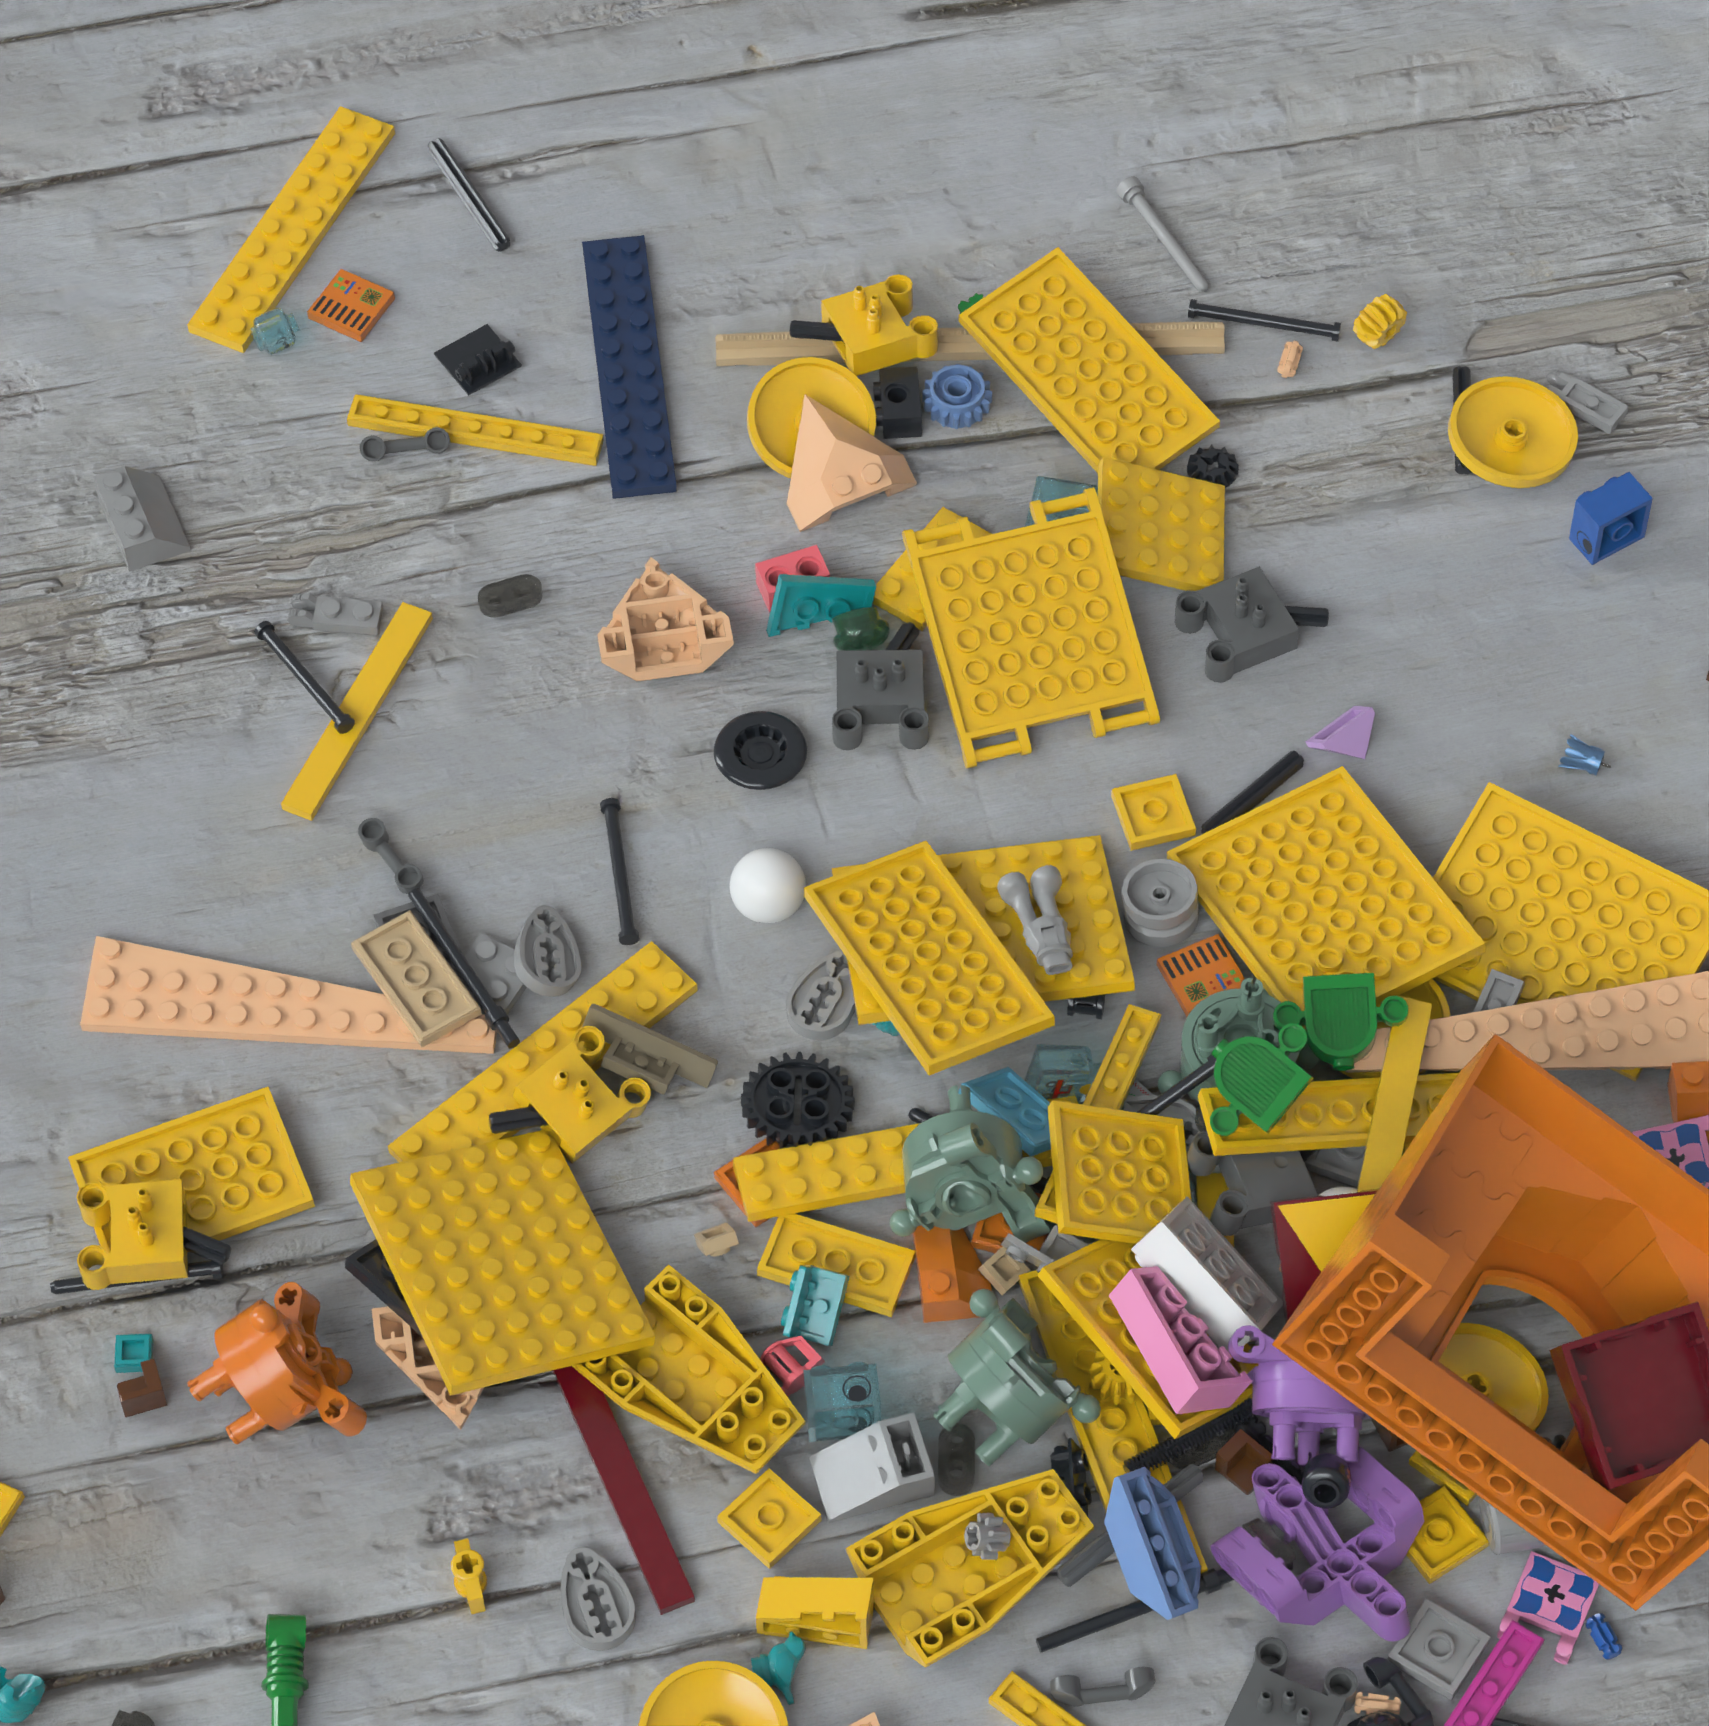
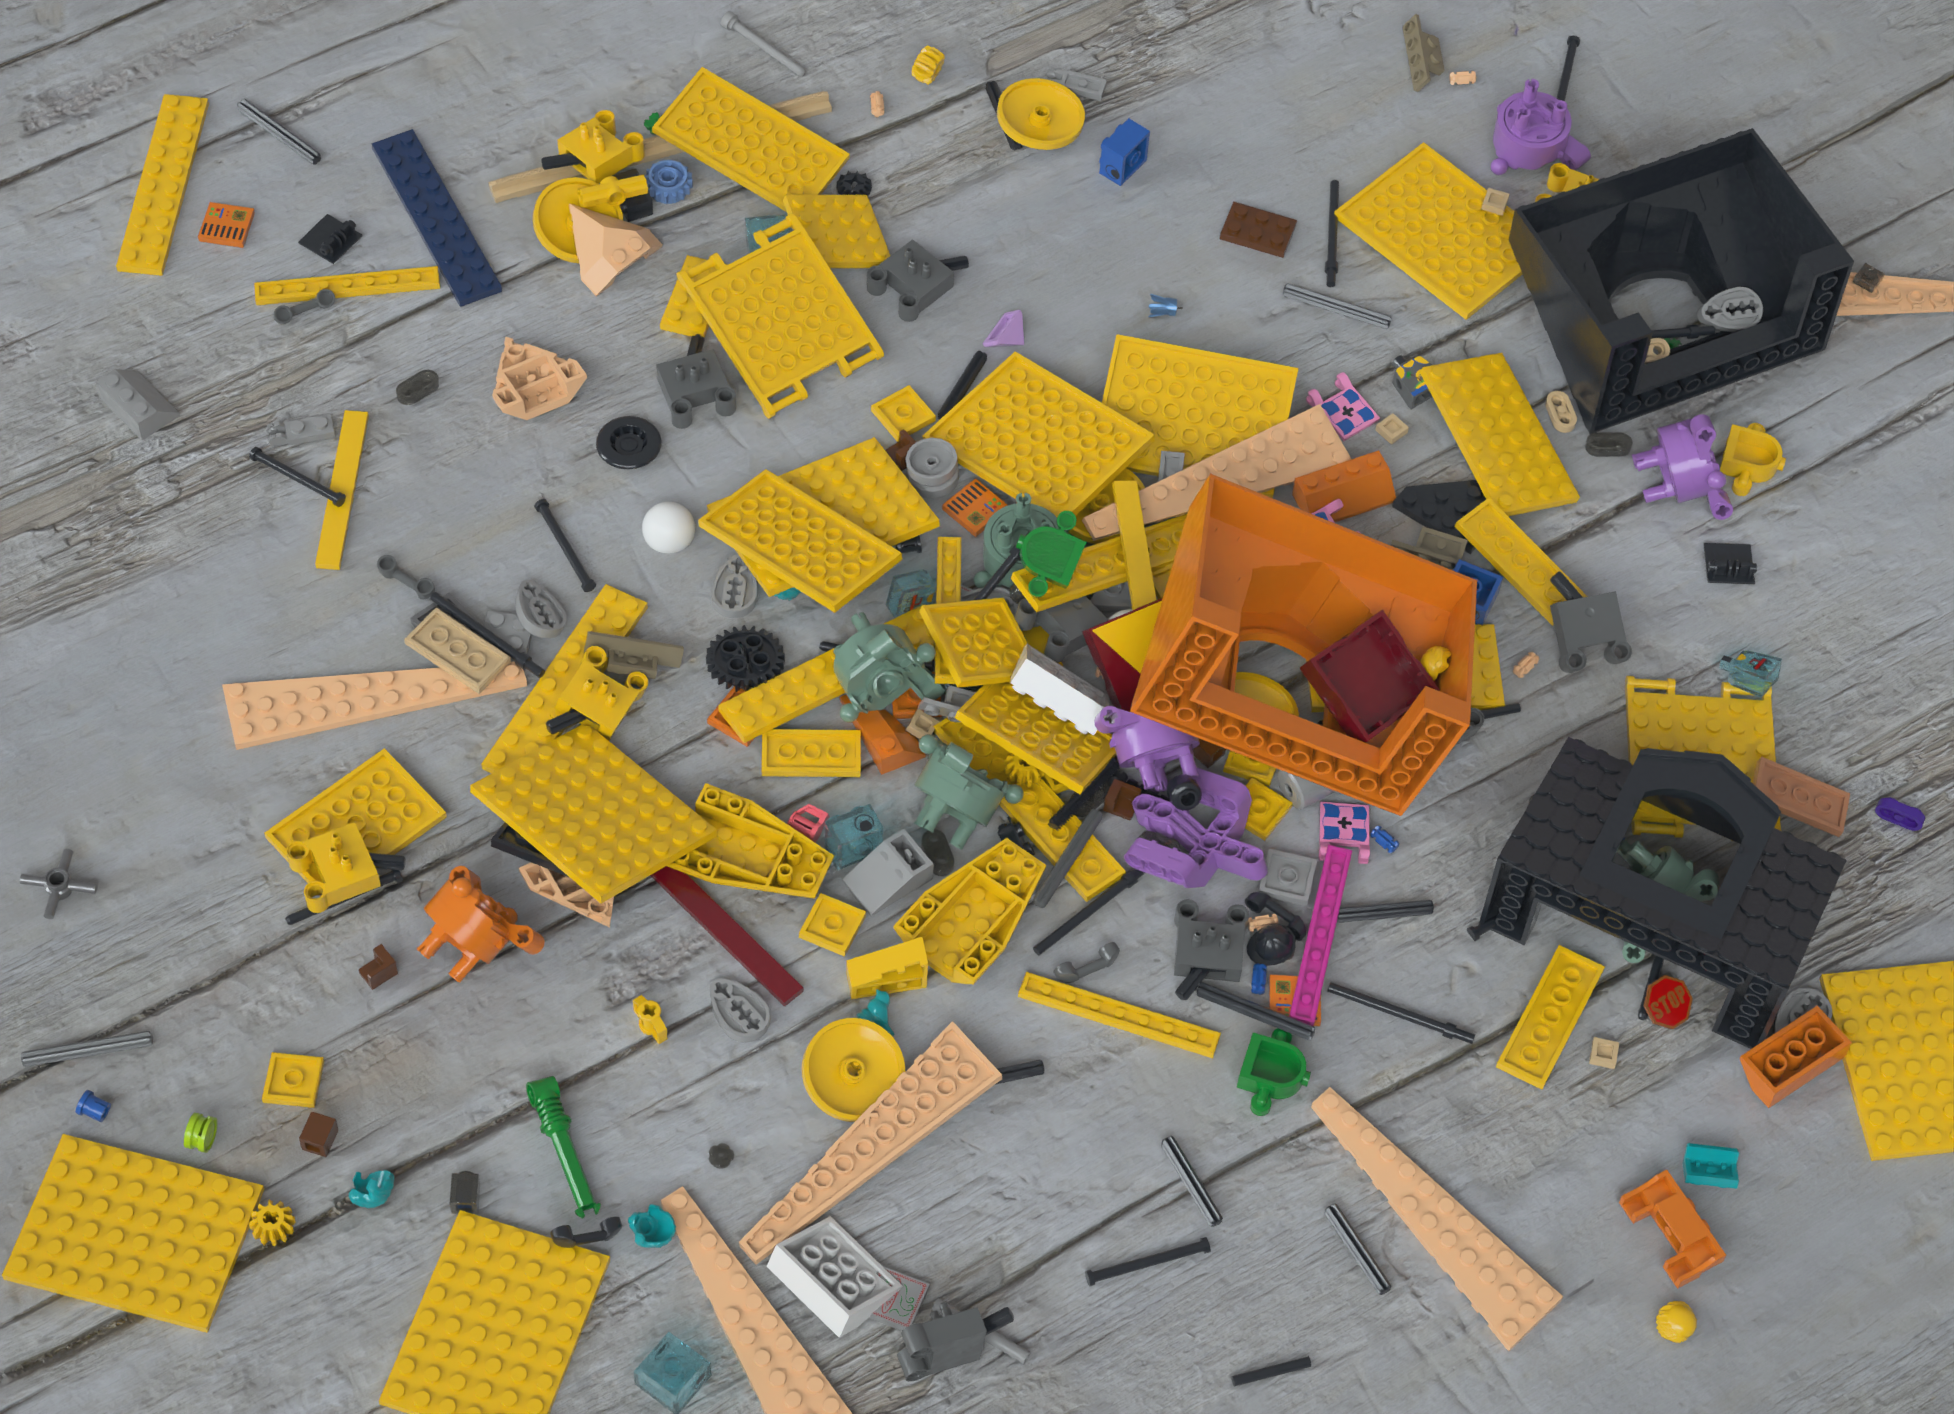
camera: 25 degrees left, 0 degrees up
(131, 1351) = (361, 946): teal tile -> none
(274, 331) = (181, 254): clear light blue head -> none
(716, 1240) = (727, 760): tan plate -> none
(800, 562) = (606, 326): coral brick -> none
(813, 599) = (627, 335): teal wing -> none
(814, 1304) = (810, 781): teal bracket -> none
(860, 630) = (665, 347): clear green piece -> none
(869, 391) = (612, 191): none -> yellow piece
(987, 1536) = (981, 891): light grey gear -> none
(1016, 1102) = (883, 612): medium azure tile -> none
(1043, 935) = (872, 505): light grey piece -> none
(1123, 863) = (899, 450): none -> reddish brown panel
(1153, 1544) = (1089, 864): medium blue wedge -> none
(1176, 1344) = (1060, 733): bright pink wedge -> none
(1264, 320) = (850, 83): black bar -> none
(1341, 1016) = (1086, 499): green piece -> none

